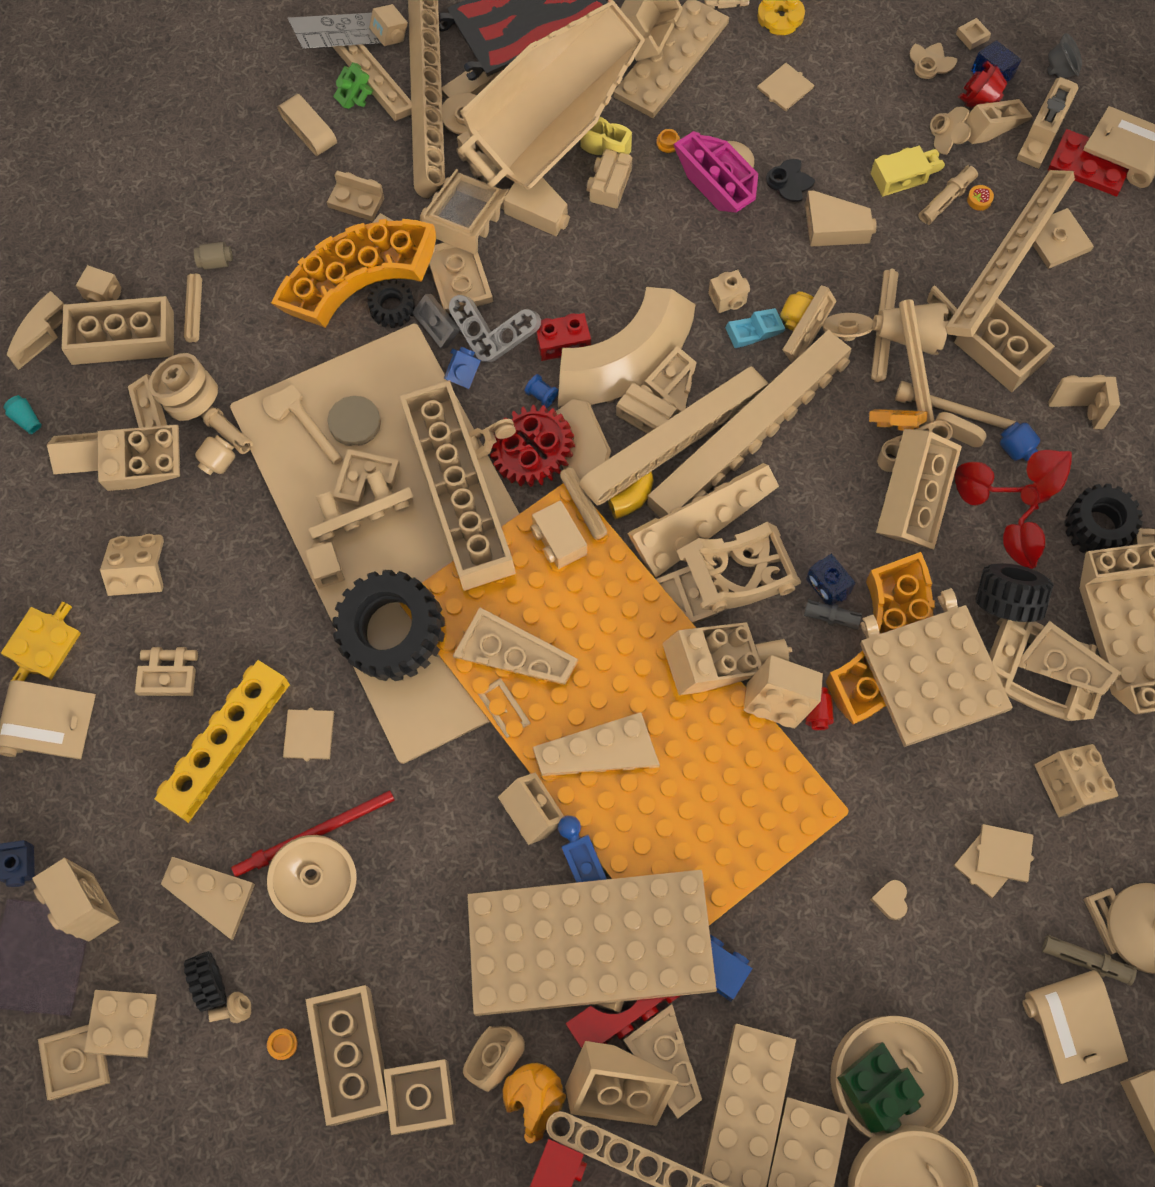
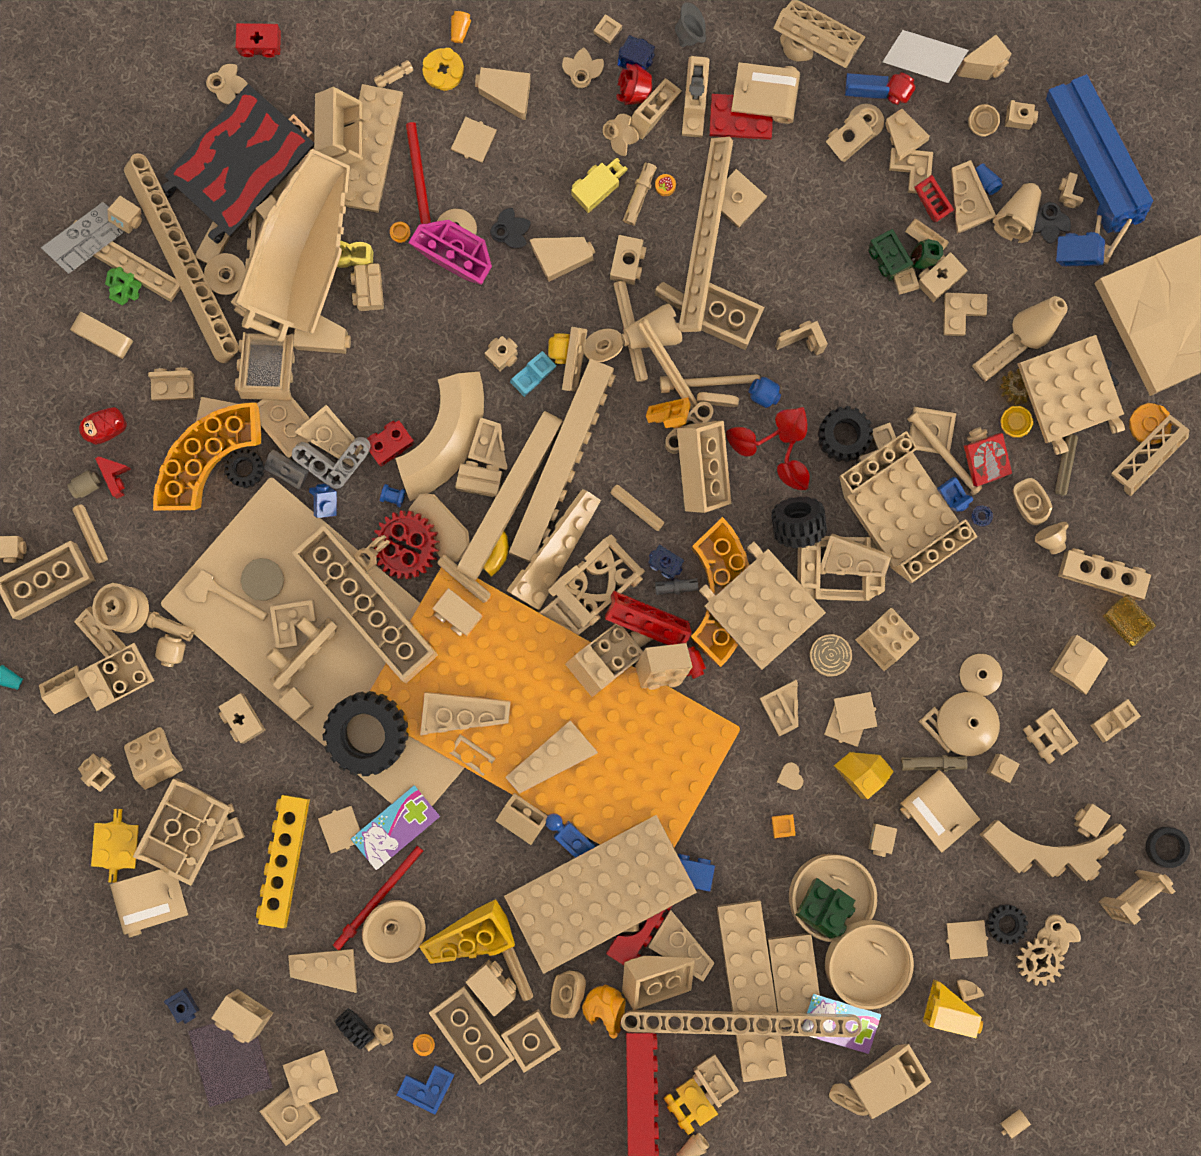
camera: 25 degrees left, 15 degrees up
(61, 558) = (96, 772): none -> tan brick
(121, 653) = (182, 831): none -> tan piece
(247, 254) = (109, 471): none -> red slope
(257, 545) = (240, 706): none -> tan brick
(258, 1113) = (427, 1095): none -> blue plate
(262, 208) = (102, 425): none -> red piece
(373, 757) = (395, 827): none -> sticker
(400, 999) = (492, 987): none -> tan brick
(409, 929) = (478, 933): none -> yellow wedge
(441, 998) = (517, 974): none -> tan axle
(498, 298) = (328, 433): none -> tan wing
(713, 90) = (418, 173): none -> red piece
(781, 631) = (647, 620): none -> red fence
(819, 510) = (638, 508): none -> tan axle
(840, 49) = (505, 89): none -> tan slope
(859, 959) = (783, 826): none -> light orange tile
(912, 808) = (782, 708): none -> tan wing
(914, 240) = (632, 248): none -> tan brick
(987, 1030) = (882, 839): none -> tan brick
(989, 932) = (864, 772): none -> yellow slope
(996, 770) = (830, 655): none -> dark tan tile

